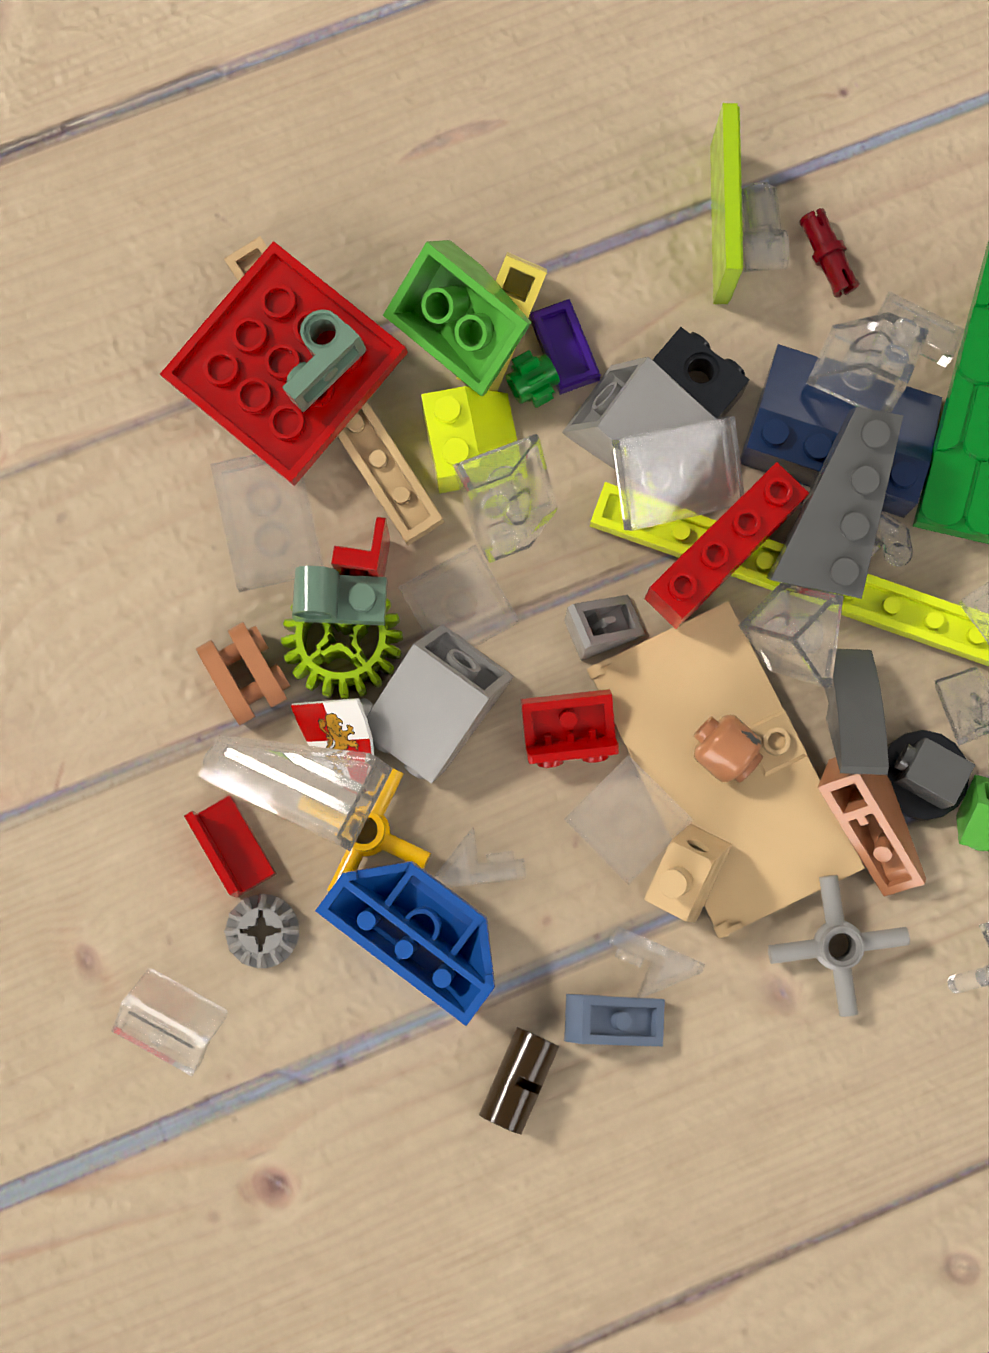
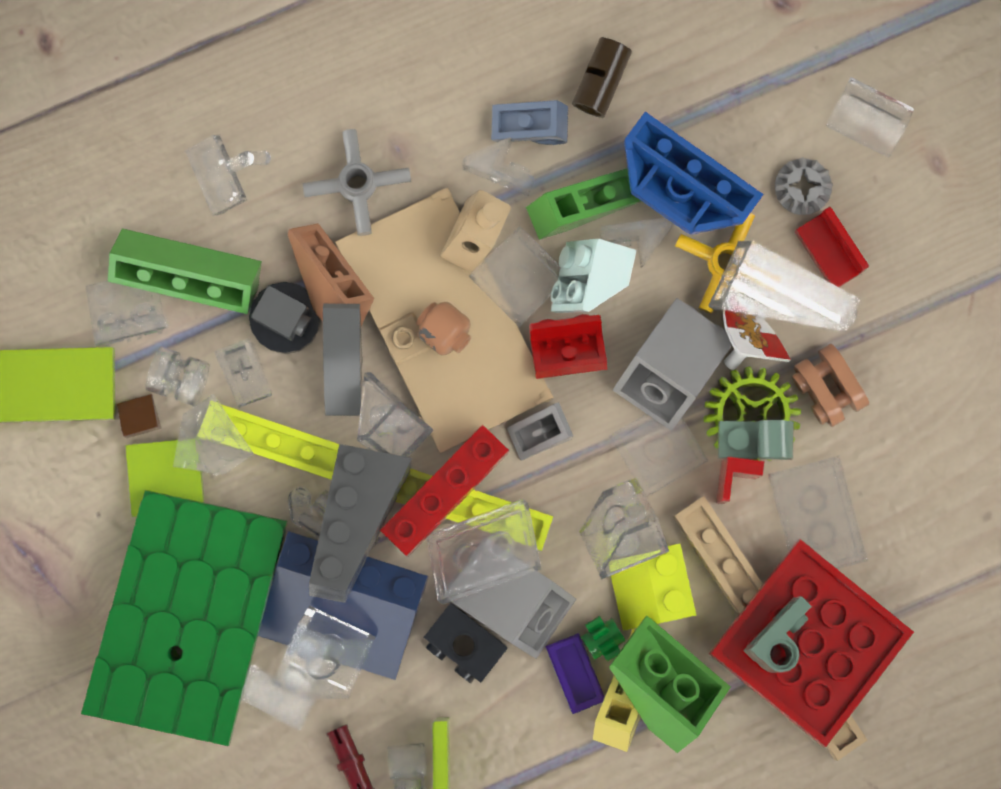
camera: 175 degrees left, 5 degrees up
(541, 808) = (590, 274): none -> light aqua slope
(550, 910) = (581, 203): none -> bright green slope

